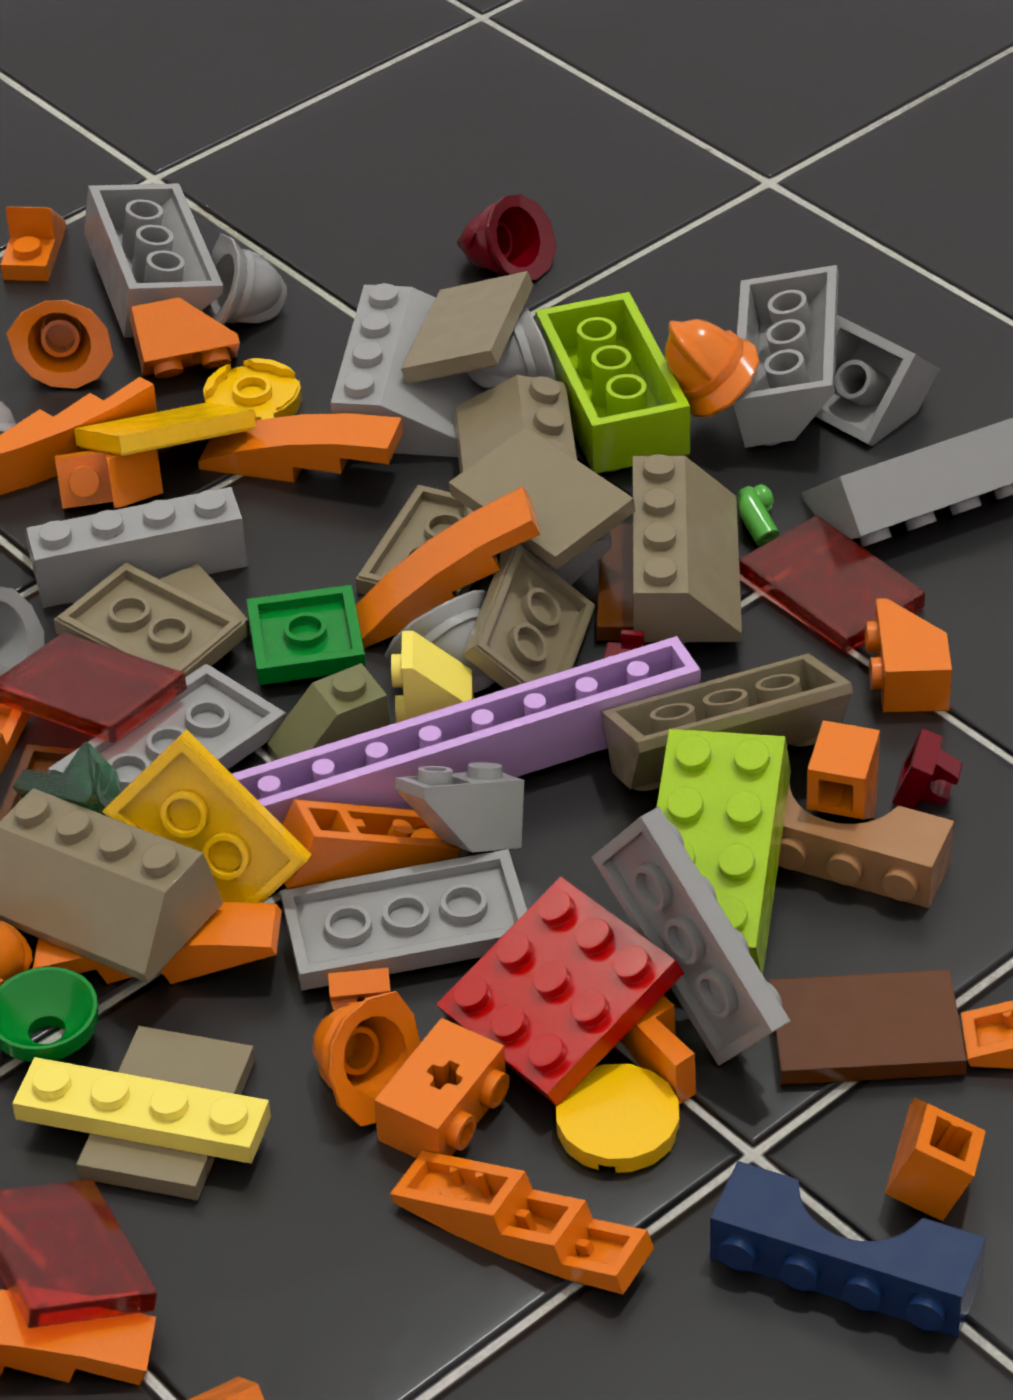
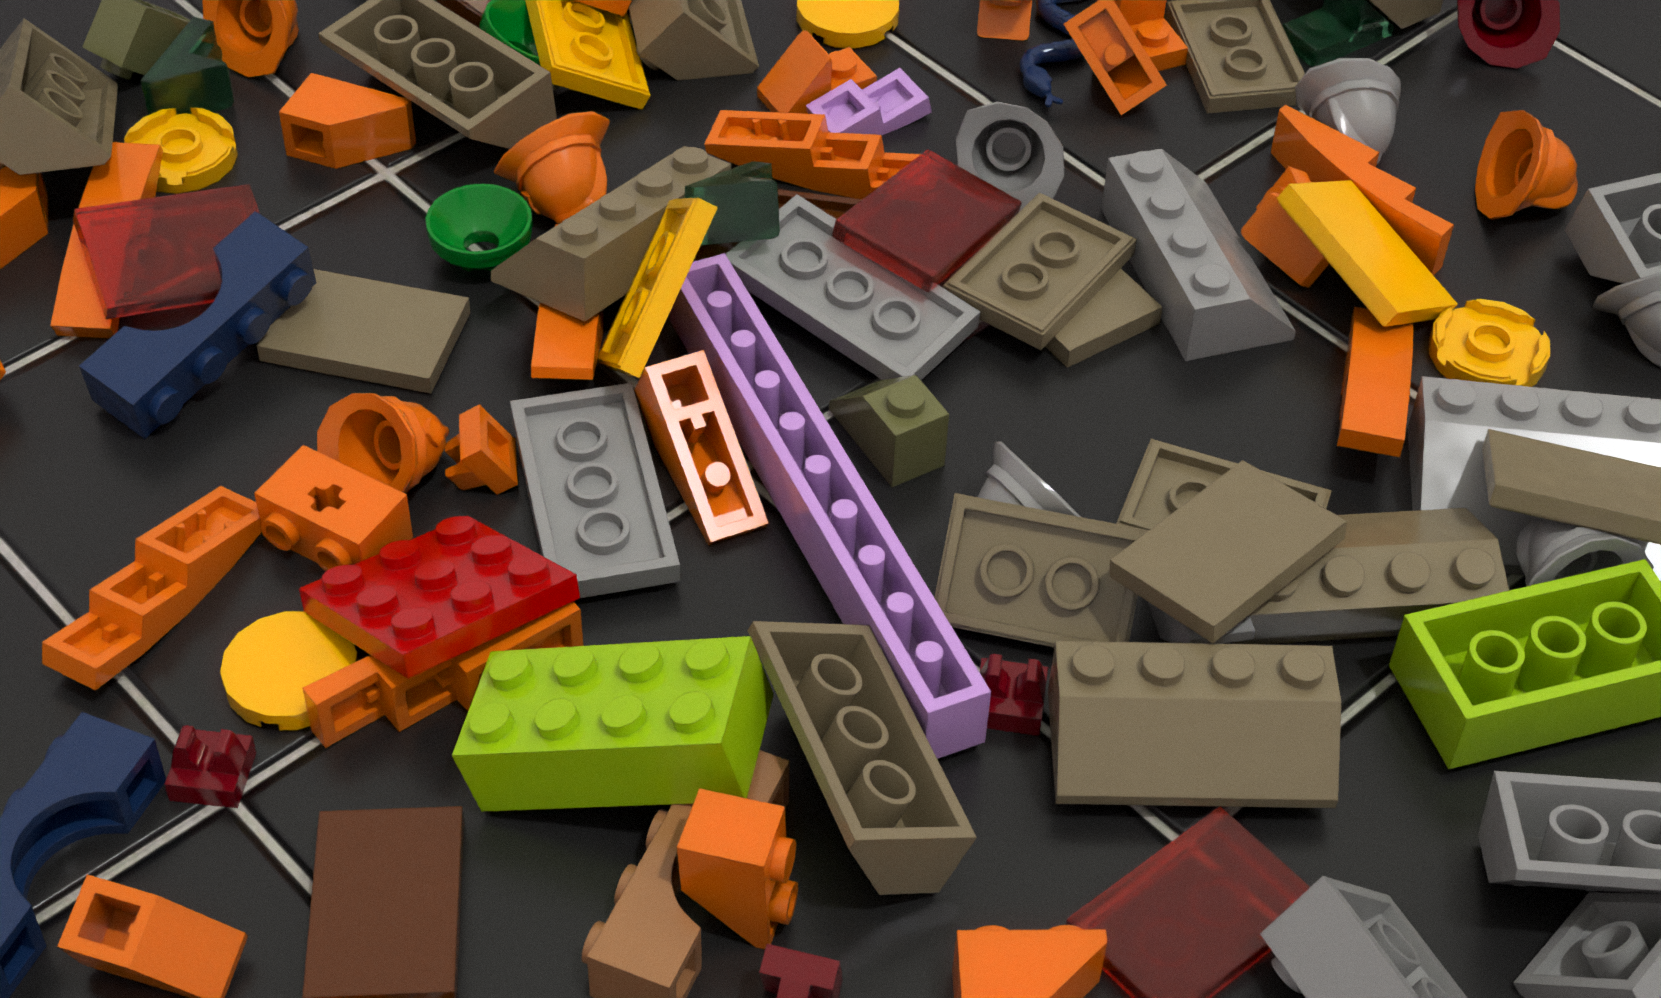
camera: 85 degrees right, 5 degrees up
(130, 1165) = (151, 374): none -> dark blue arch
(142, 1110) = (345, 301): light yellow plate -> none
(179, 336) = (1555, 258): orange slope -> none
(305, 634) = (1047, 397): green plate -> none
(428, 678) = (919, 482): light yellow slope -> none
(446, 564) = (1119, 483): orange slope -> none
(470, 808) = (715, 505): light grey slope -> none
(682, 917) = (427, 663): light grey plate -> none
(709, 364) = (1560, 730): orange piece -> none
(722, 1149) = (210, 767): none -> dark red tile
(753, 510) = (1329, 825): bright green arm -> none

